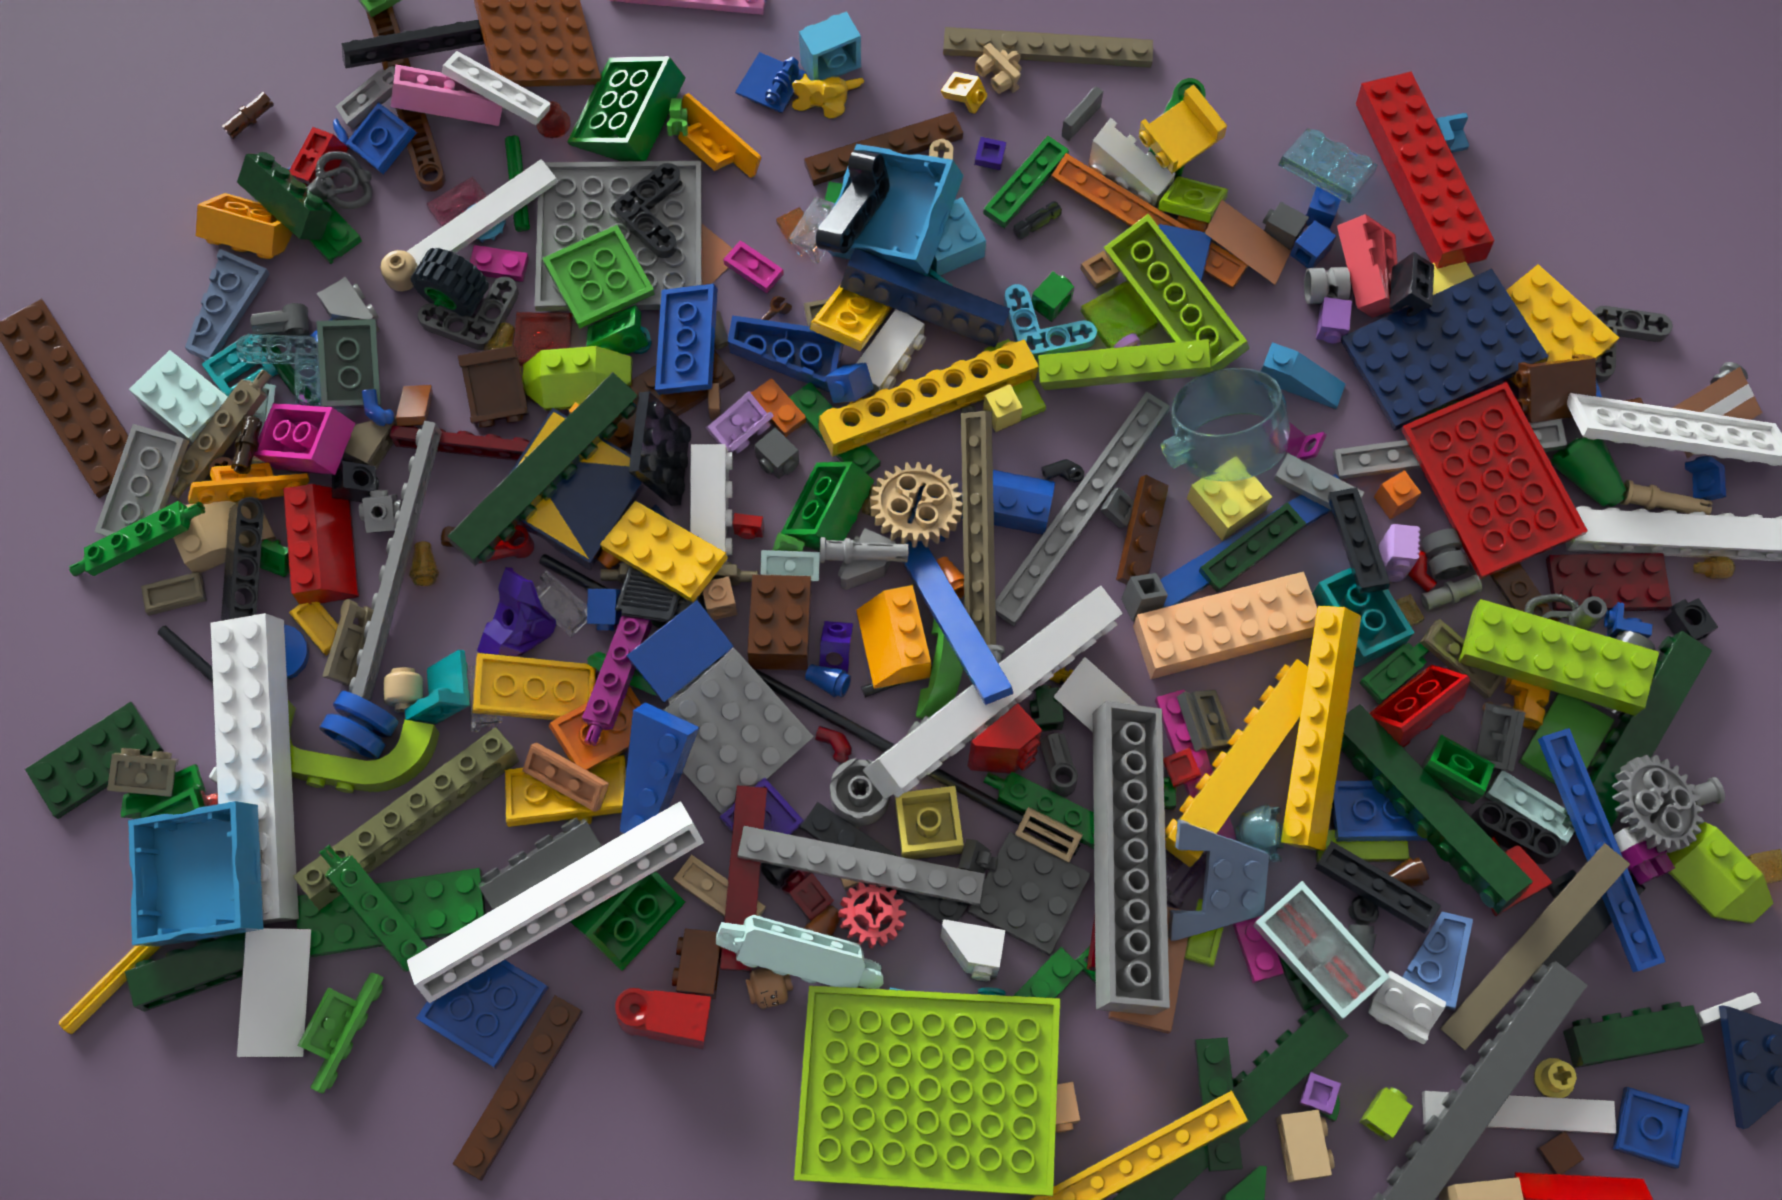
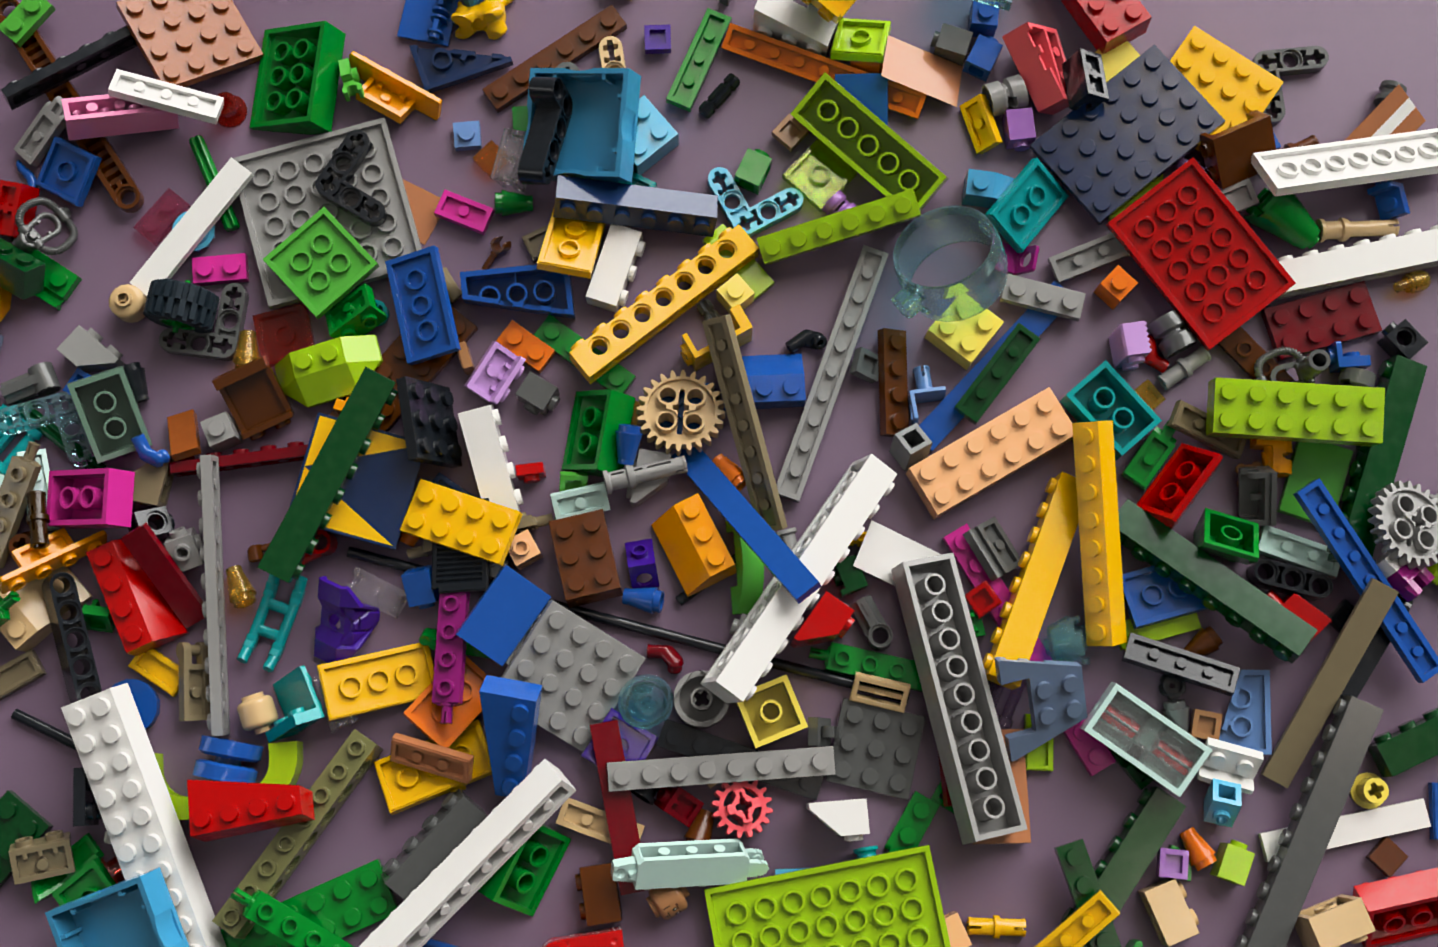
camera: 15 degrees left, 10 degrees up
(201, 733) = (84, 804): none -> black plate
(353, 529) = (165, 574): none -> dark red tile
(362, 771) = (241, 808): none -> red wedge
(385, 345) = (137, 380): none -> black cone
(447, 587) = (279, 636): none -> teal piece
(452, 411) = (221, 432): none -> light grey brick
(777, 198) = (467, 135): none -> medium blue plate
(778, 132) = (448, 68): none -> dark blue wing
(801, 777) = (645, 701): none -> clear light blue cone
(802, 269) = (512, 203): none -> green cone
(849, 382) = (588, 310): blue brick -> none
(854, 518) = (628, 442): none -> blue cone
(950, 455) = (703, 357): none -> yellow panel
(1111, 1113) = (996, 926): none -> yellow pin
(1172, 548) = (924, 393): none -> medium blue bracket
(1295, 306) = (981, 124): none -> yellow plate
(1324, 393) = (1026, 205): none -> teal tile
(1352, 1091) = (1199, 850): none -> orange cone
(1358, 541) = (1093, 346): black plate -> none
(1389, 1044) = (1222, 802): none -> medium azure brick
(1391, 957) = (1205, 724): none -> medium nougat plate

